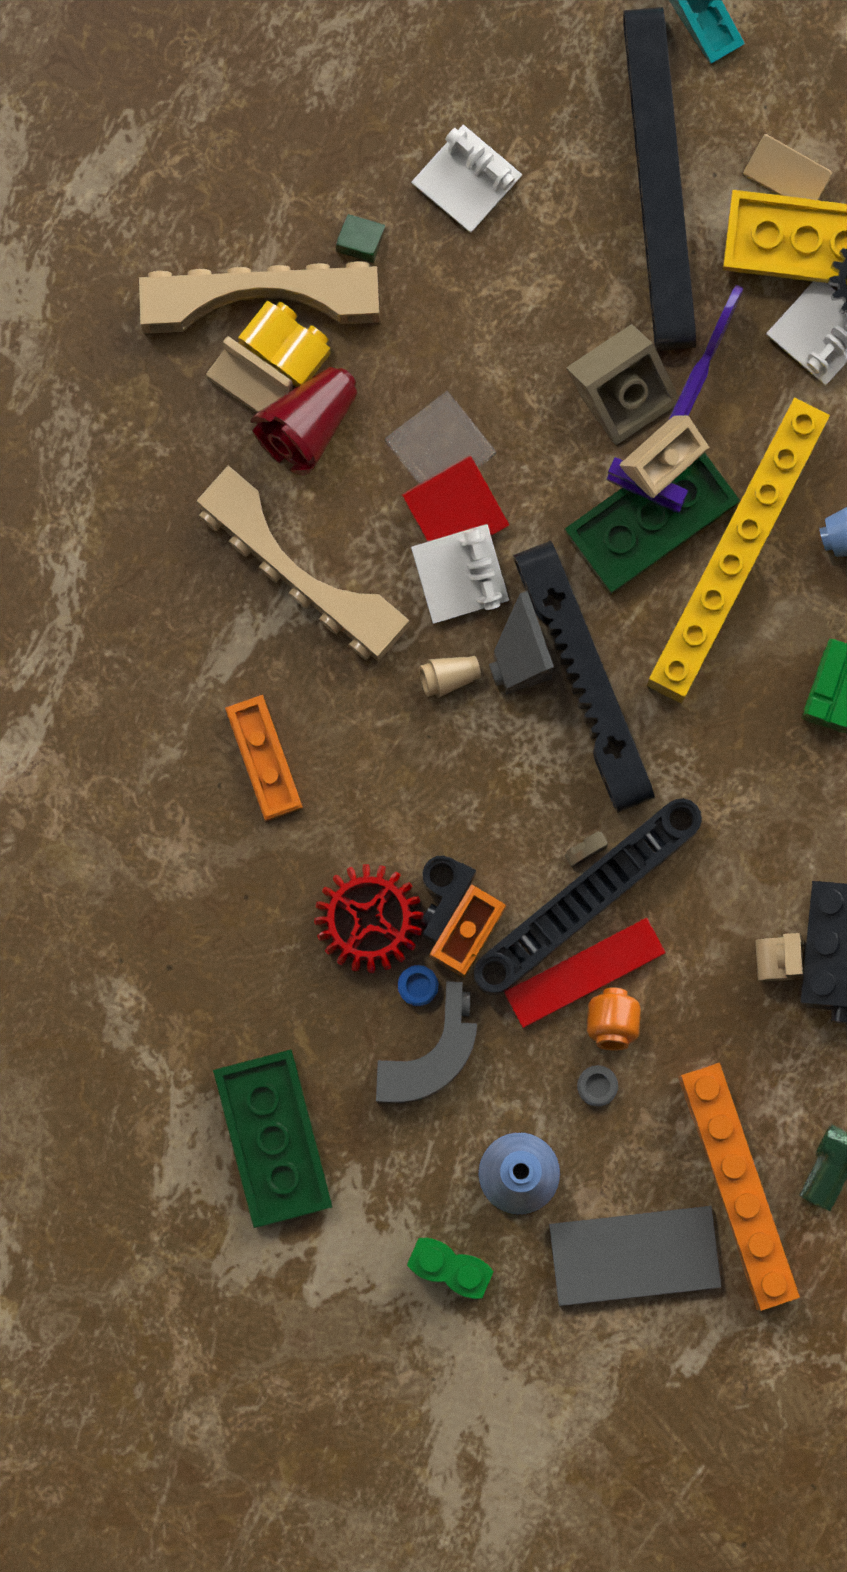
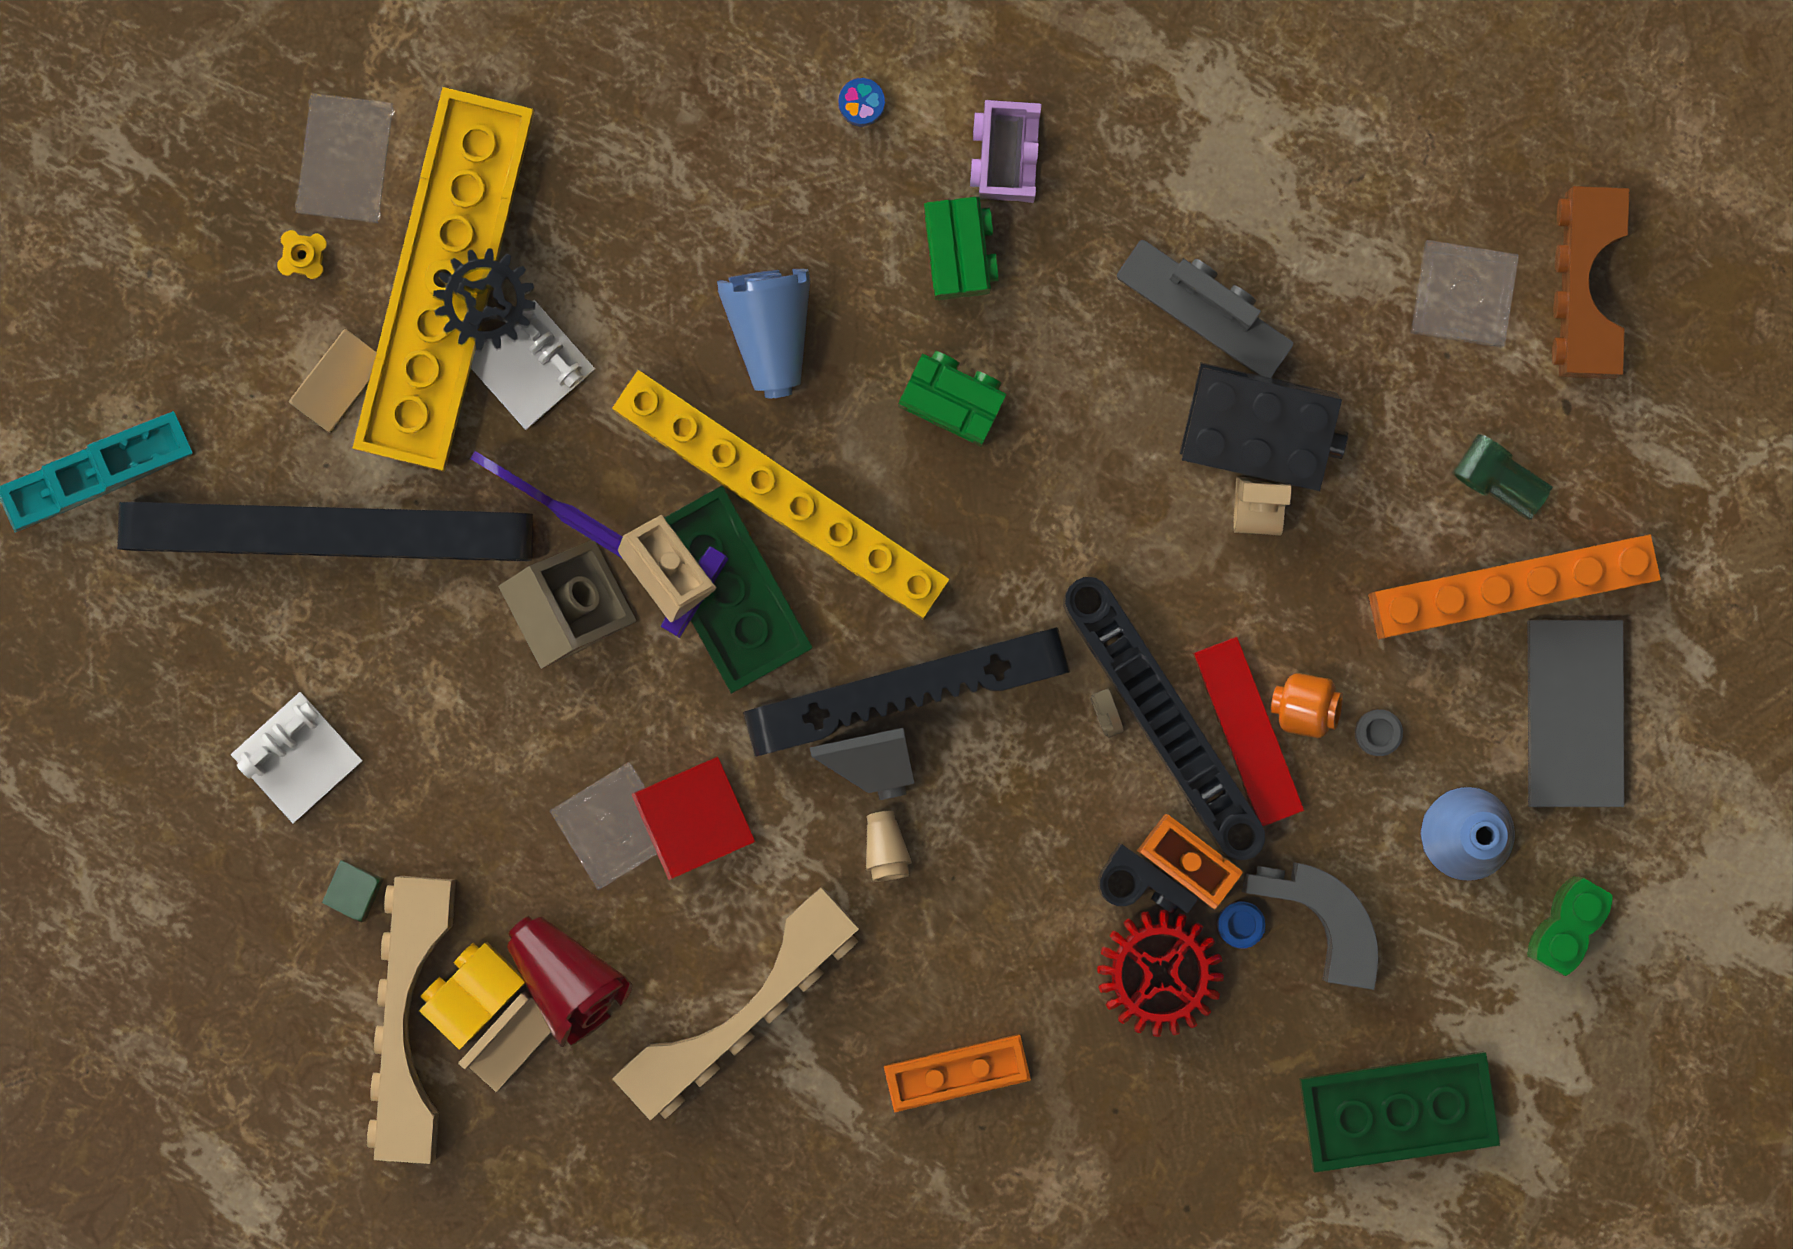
camera: 90 degrees left, 5 degrees up
(460, 573) = (769, 820): white hinge -> none

